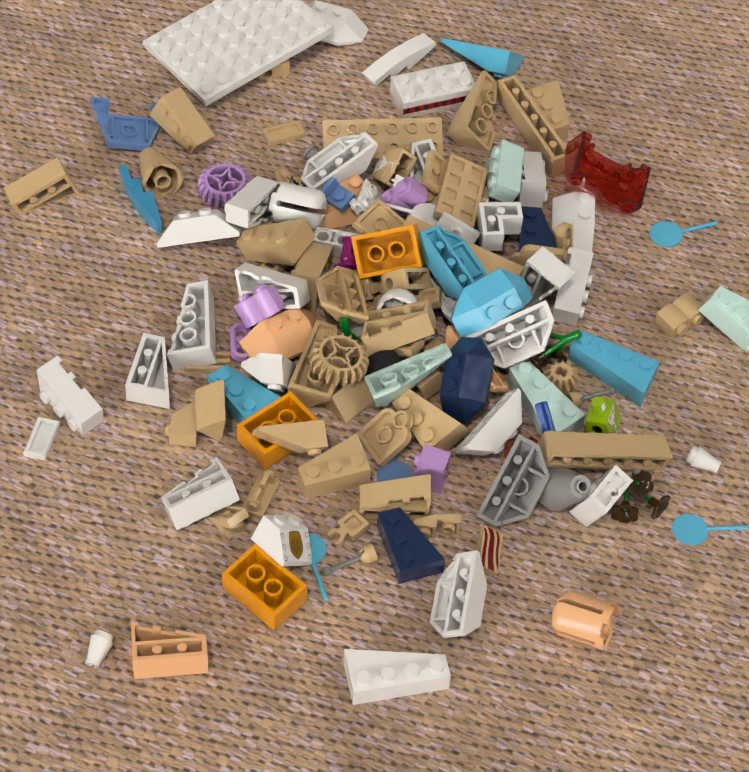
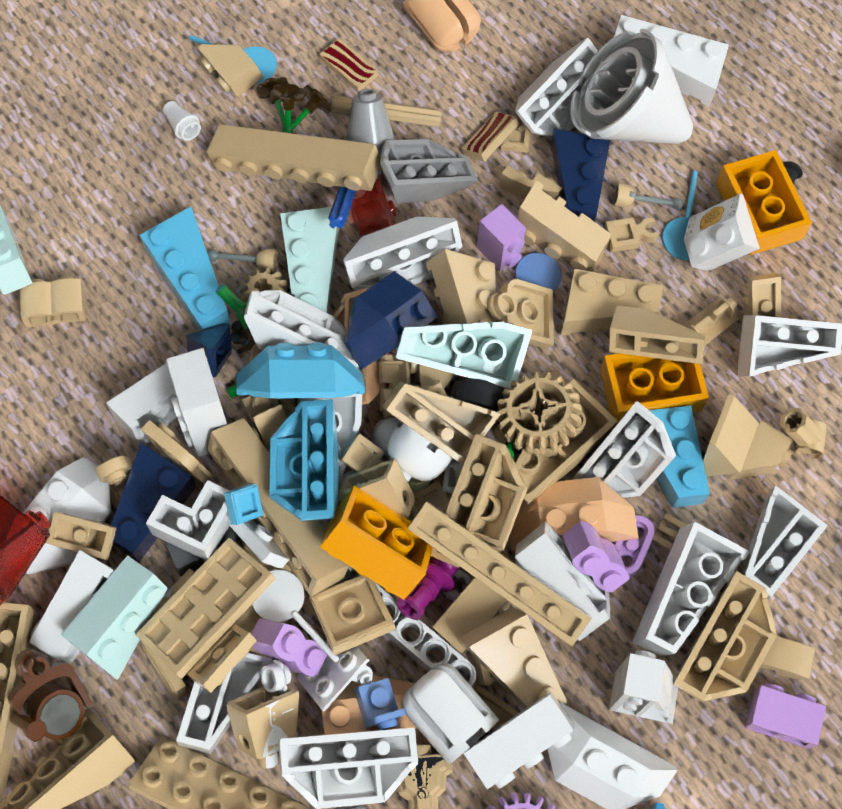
camera: 150 degrees left, 15 degrees up
(105, 294) = (786, 716): none -> lavender brick
(119, 322) = (790, 659): none -> tan slope
(157, 303) = (729, 643): none -> tan wedge
(159, 445) = (807, 433): none -> tan piece
(195, 258) = (644, 688): none -> white wedge
(255, 631) = (793, 170): none -> black piece
(308, 262) = (499, 573): none -> tan plate
(399, 594) = (631, 93): none -> white cone
(475, 232) = (243, 504): none -> medium azure tile
(506, 129) = (52, 708): none -> reddish brown piece
(553, 198) = (81, 534): none -> tan slope
(565, 320) = (216, 346): none -> dark blue slope
(573, 537) = (395, 112): none -> tan axle
(601, 496) = (321, 90): white window -> none
(604, 415) = (262, 204): lime torso -> none
(625, 558) = (348, 65): none -> tile
(702, 508) = (233, 65): none -> tan slope

